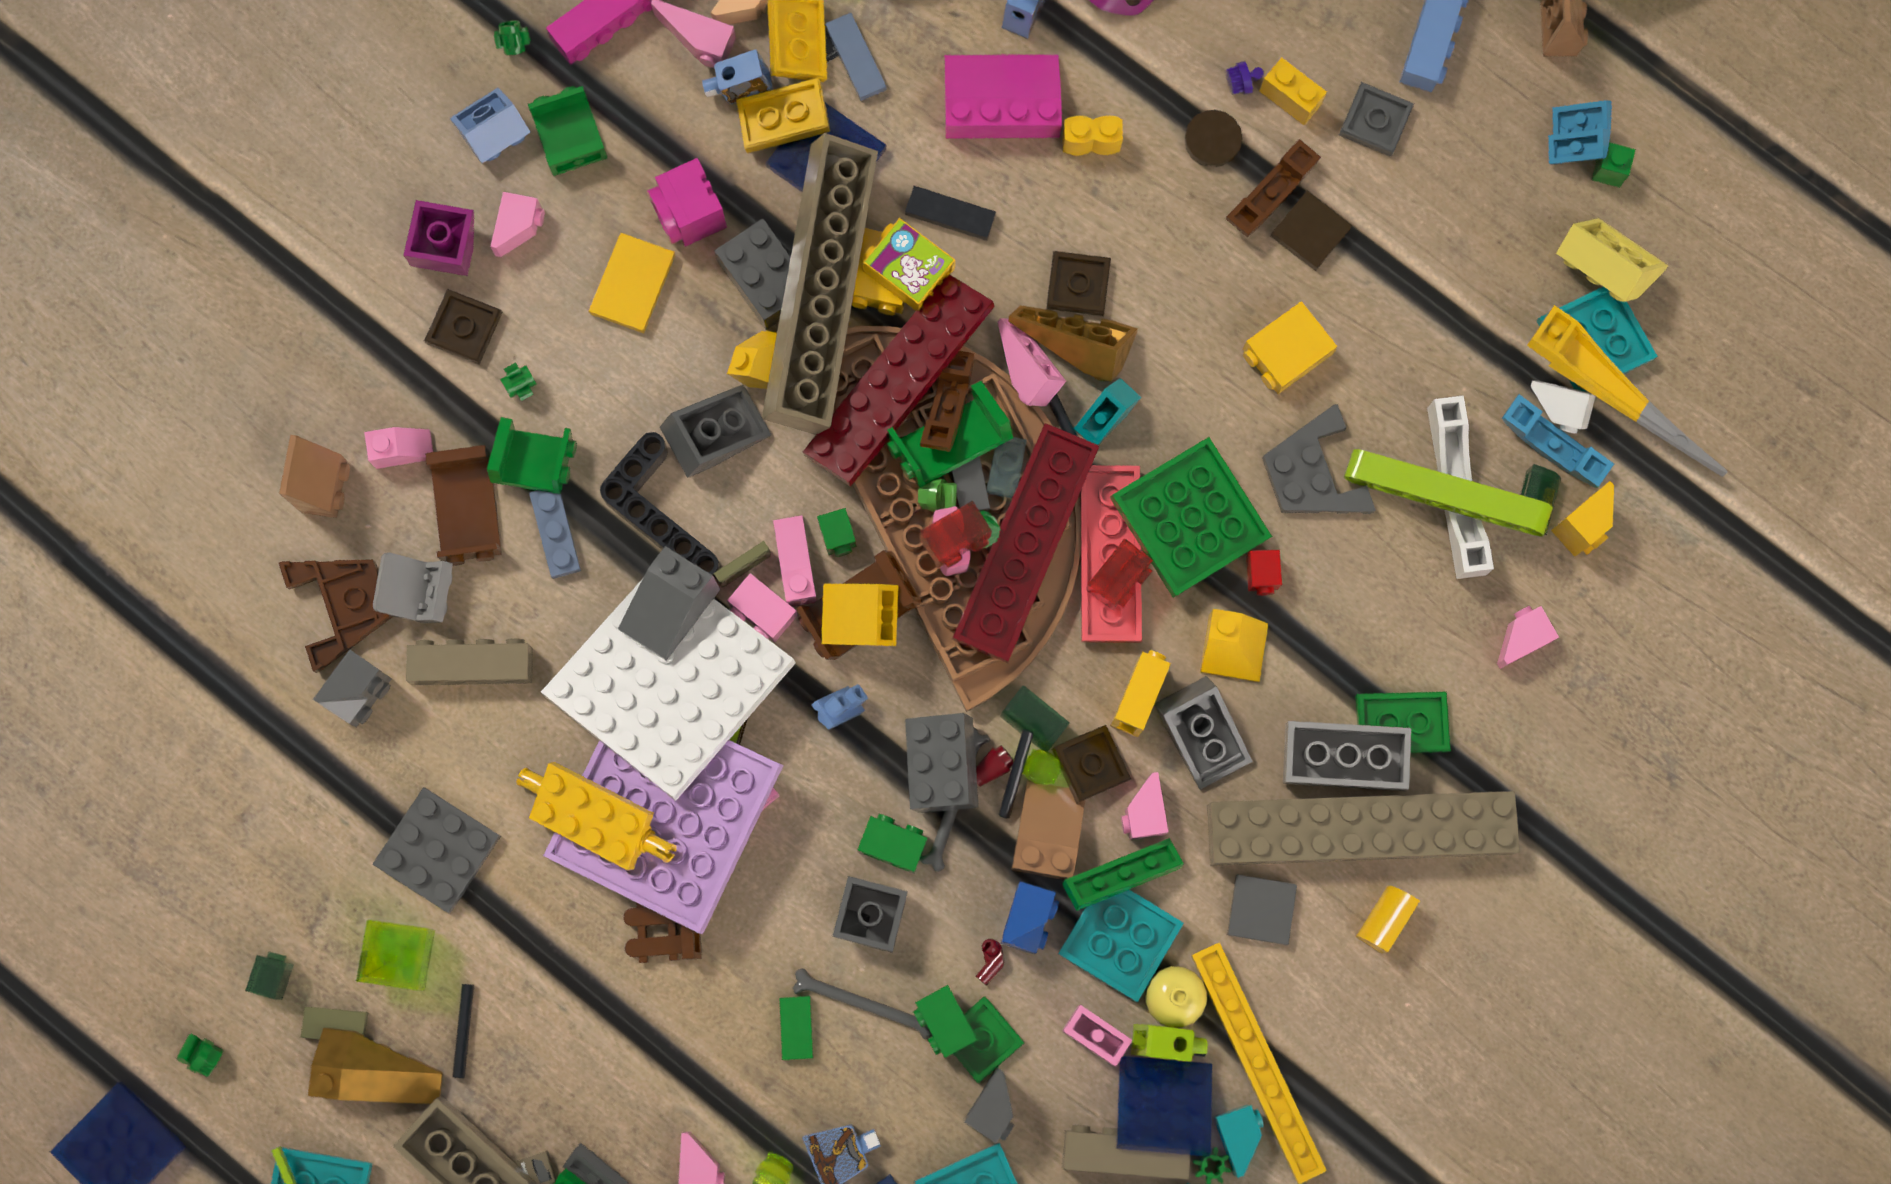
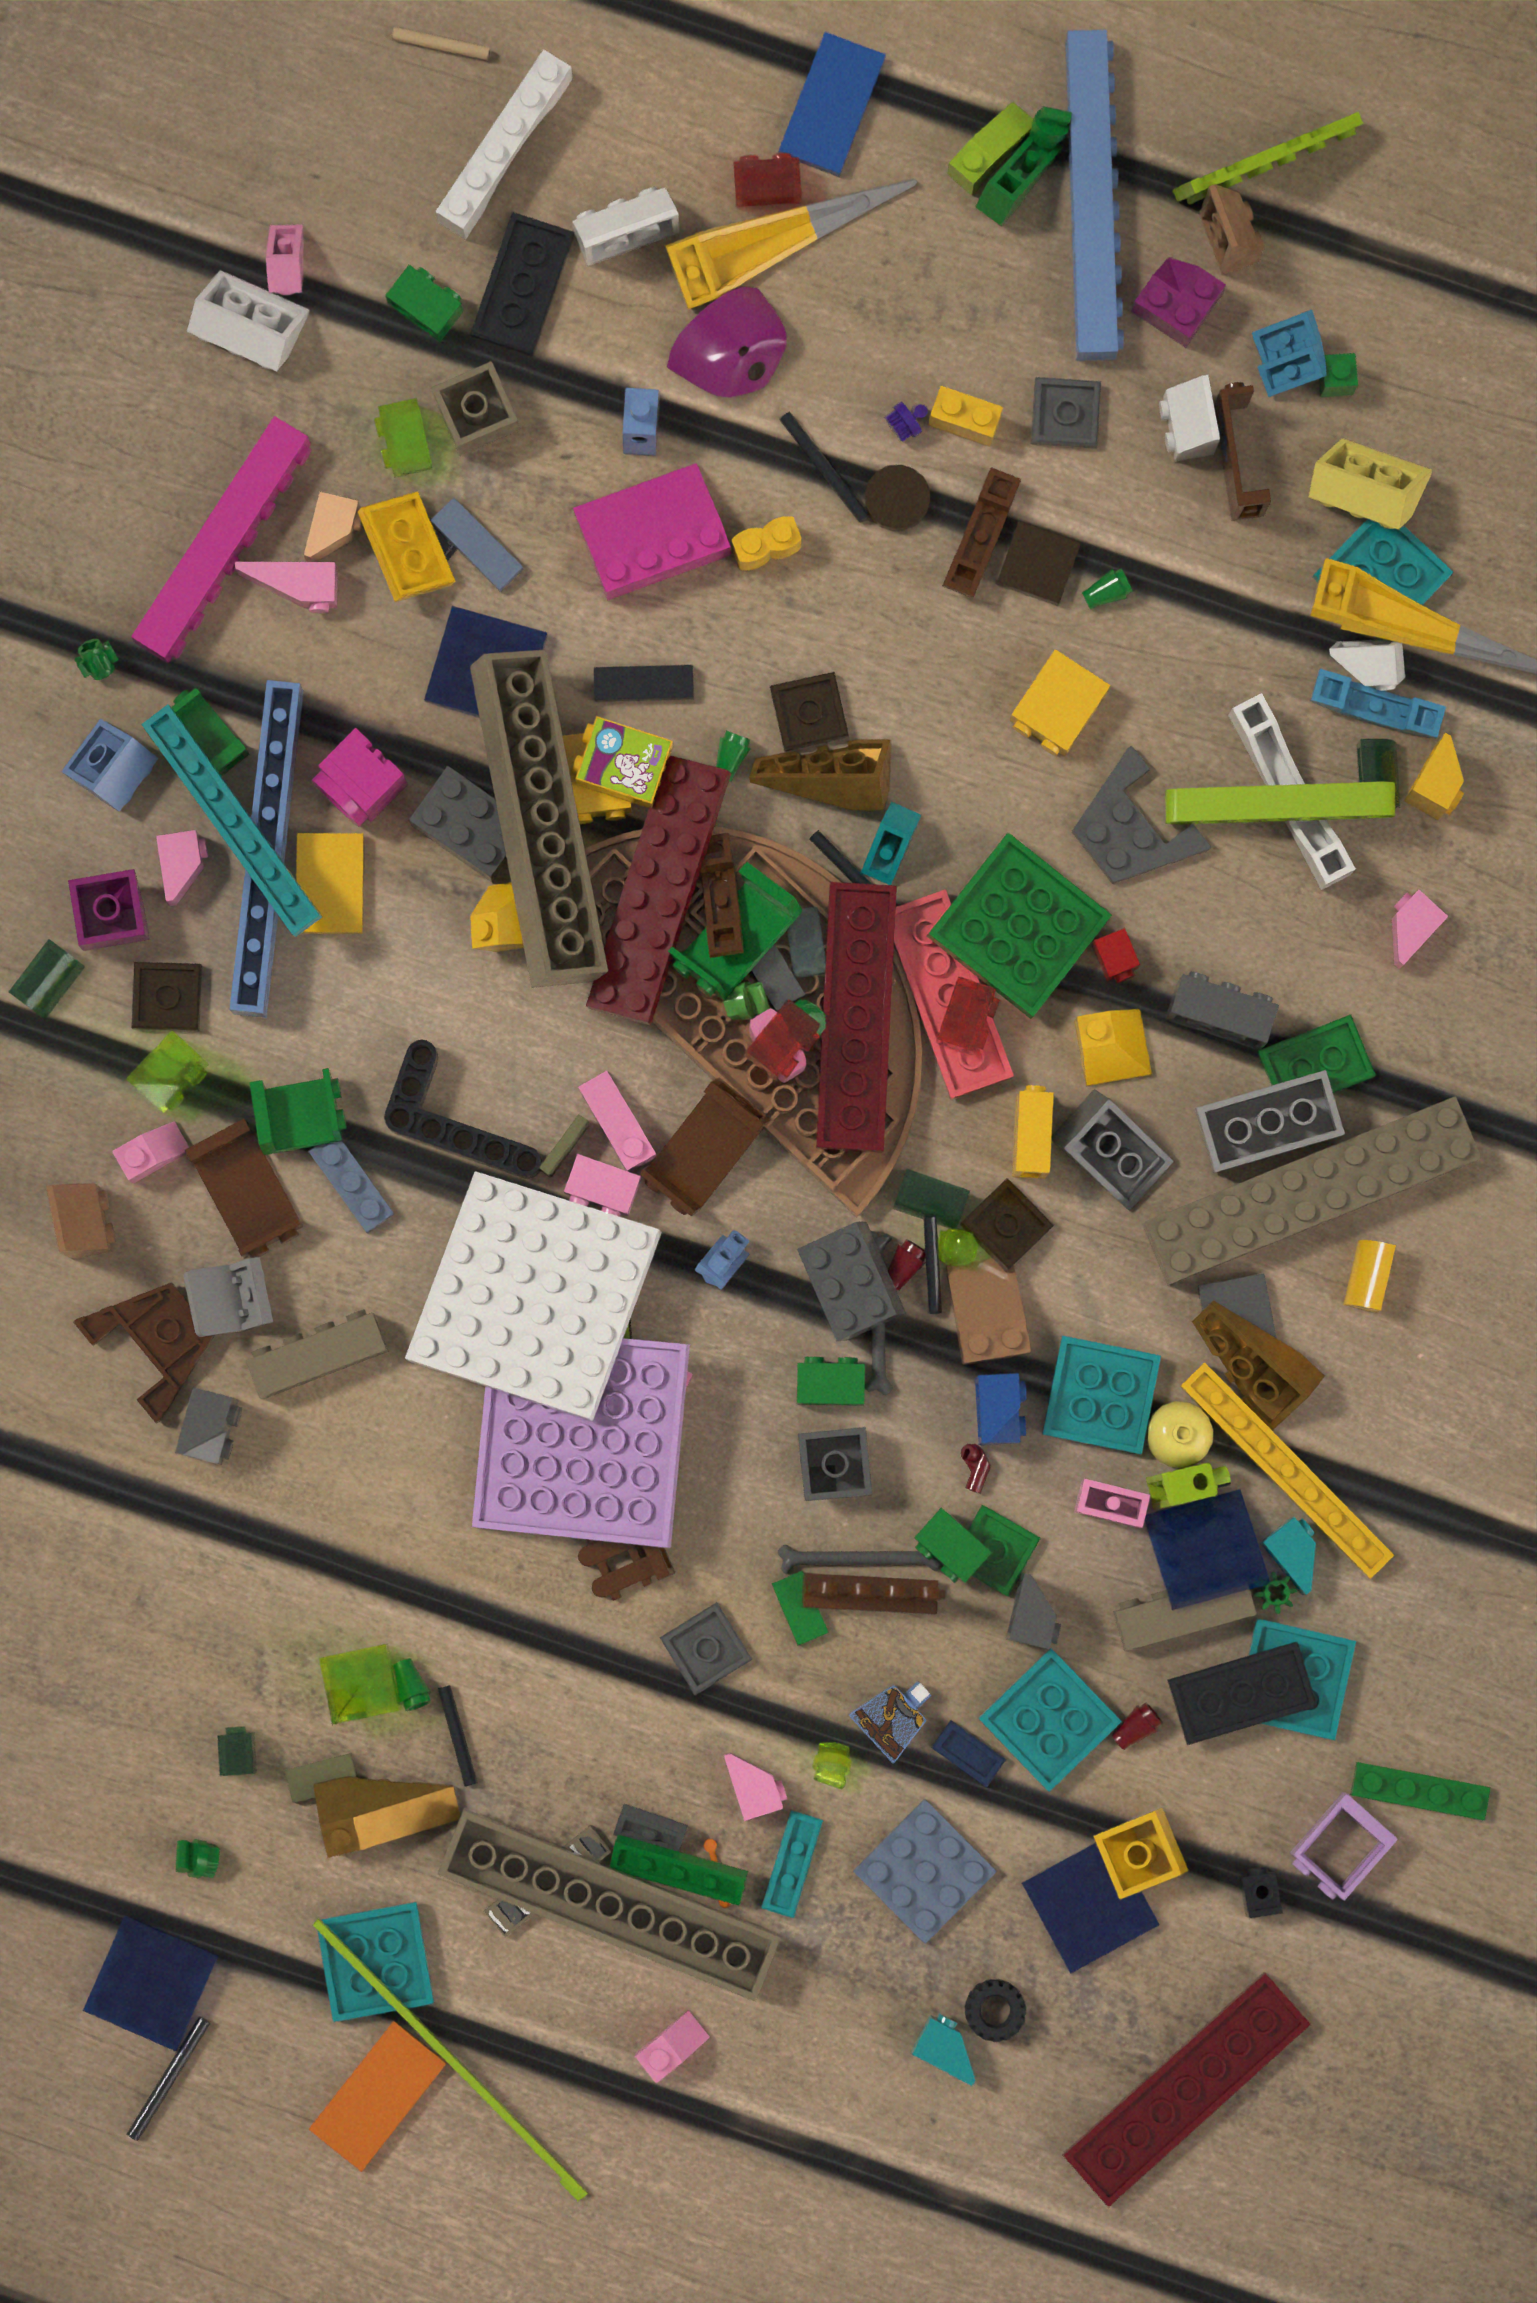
camera: 20 degrees left, 5 degrees up
(369, 277) = (46, 979): none -> clear green brick
(436, 850) = (357, 1561): dark grey plate -> none
(437, 385) = (168, 1072): none -> clear neon green slope
(439, 973) = (411, 1687): none -> green cone
(518, 381) = (251, 1036): green gear -> none
(567, 199) = (231, 820): none -> teal plate
(589, 235) = (271, 815): none -> medium blue brick
(593, 816) = (510, 1467): yellow plate -> none
(668, 603) = (504, 1218): dark grey slope -> none
(703, 1033) = (705, 1648): none -> dark grey tile
(714, 430) = (480, 1013): dark grey slope -> none
(739, 77) = (375, 615): medium blue torso -> none
(783, 115) = (424, 641): yellow tile -> none
(837, 532) = (651, 1076): green brick -> none
(860, 614) = (710, 1157): yellow brick -> none
(861, 1038) = (871, 1593): none -> reddish brown fence
(1003, 292) = (732, 752): none -> green cone
(1029, 367) = (790, 824): bright pink slope -> none
(1122, 874) = (1080, 1328): green plate -> none
(1146, 811) = (1081, 1254): bright pink slope -> none
(1162, 94) = (824, 467): none -> black bar
(1269, 967) = (1263, 1368): none -> pearl gold wedge
(1339, 648) = (1222, 1010): none -> dark grey brick
(1362, 270) = (1108, 589): none -> green cone
(1479, 156) = (1190, 419): none -> white slope
(1501, 60) = (1178, 299): none -> magenta slope
(1501, 238) = (1241, 504): none -> reddish brown panel

